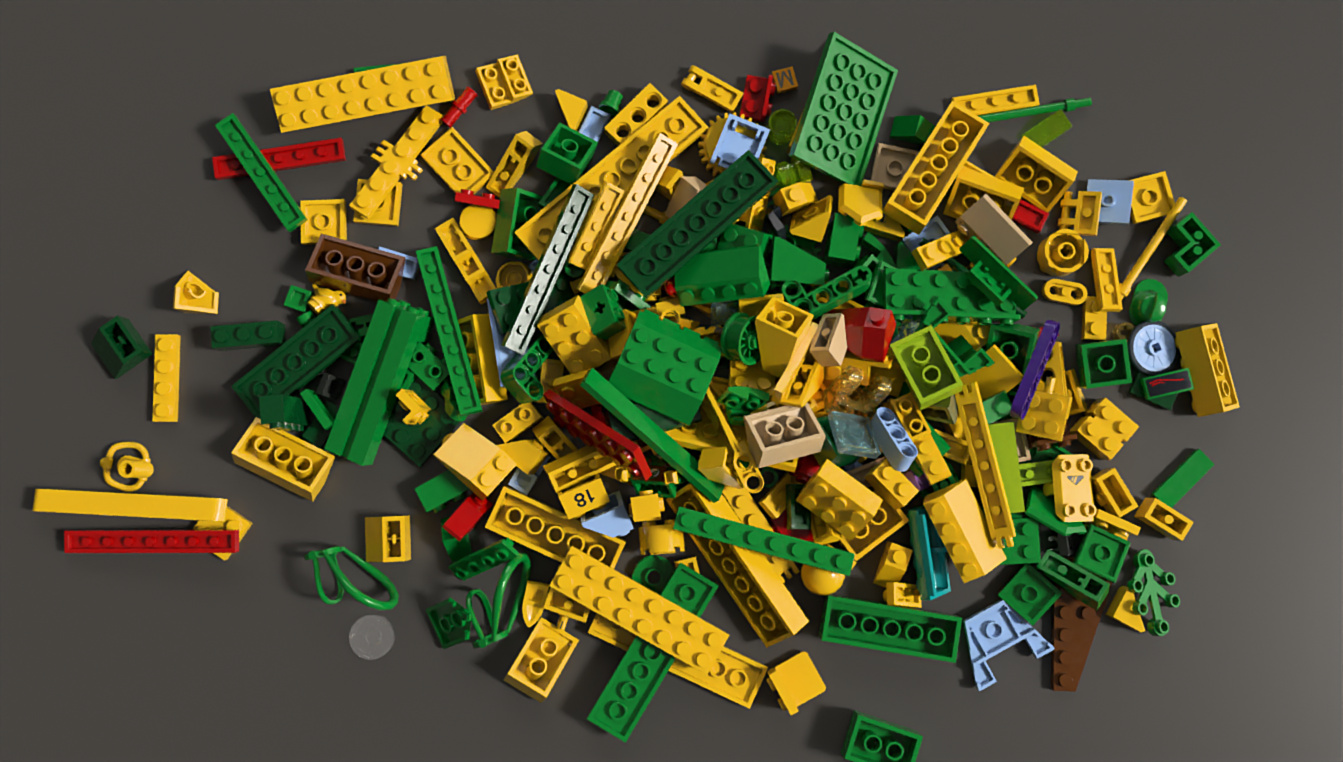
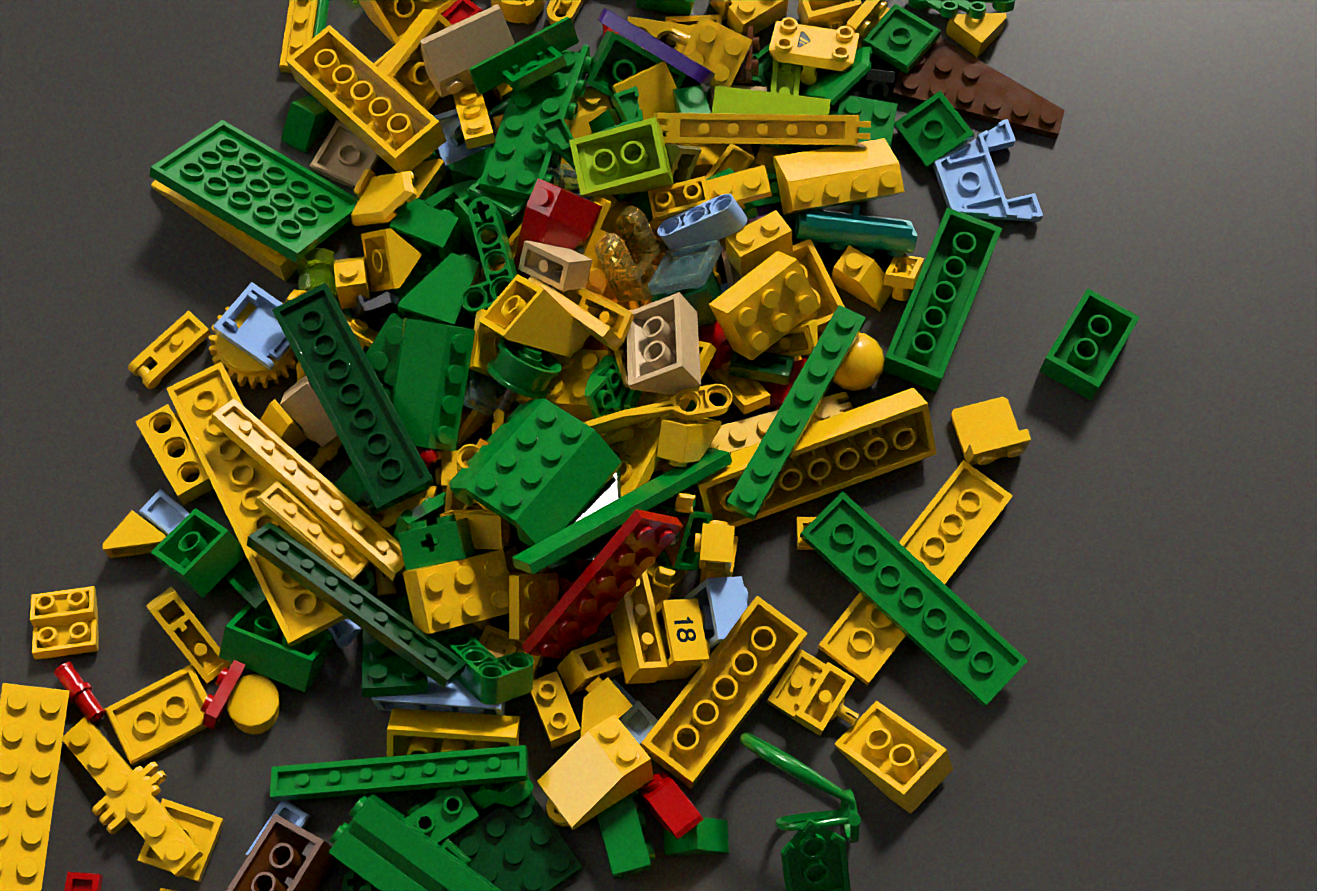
camera: 75 degrees left, 15 degrees down
(411, 401) = (489, 842): yellow bracket -> none
(465, 259) = (304, 732): yellow slope -> none
(484, 559) = (737, 792): green bracket -> none
(512, 274) = (344, 673): yellow piece -> none
(534, 601) = (810, 746): yellow plate -> none
(611, 103) = (145, 482): green piece -> none
(639, 610) = (851, 599): yellow plate -> none
(649, 564) = (803, 596): green tile -> none
(660, 538) = (762, 552): yellow brick -> none
(756, 98) = (200, 295): red bracket -> none
(782, 126) = (250, 266): clear neon green wheel -> none
(784, 80) = (187, 258): light orange tile -> none
(1074, 579) = (927, 72): green slope -> none

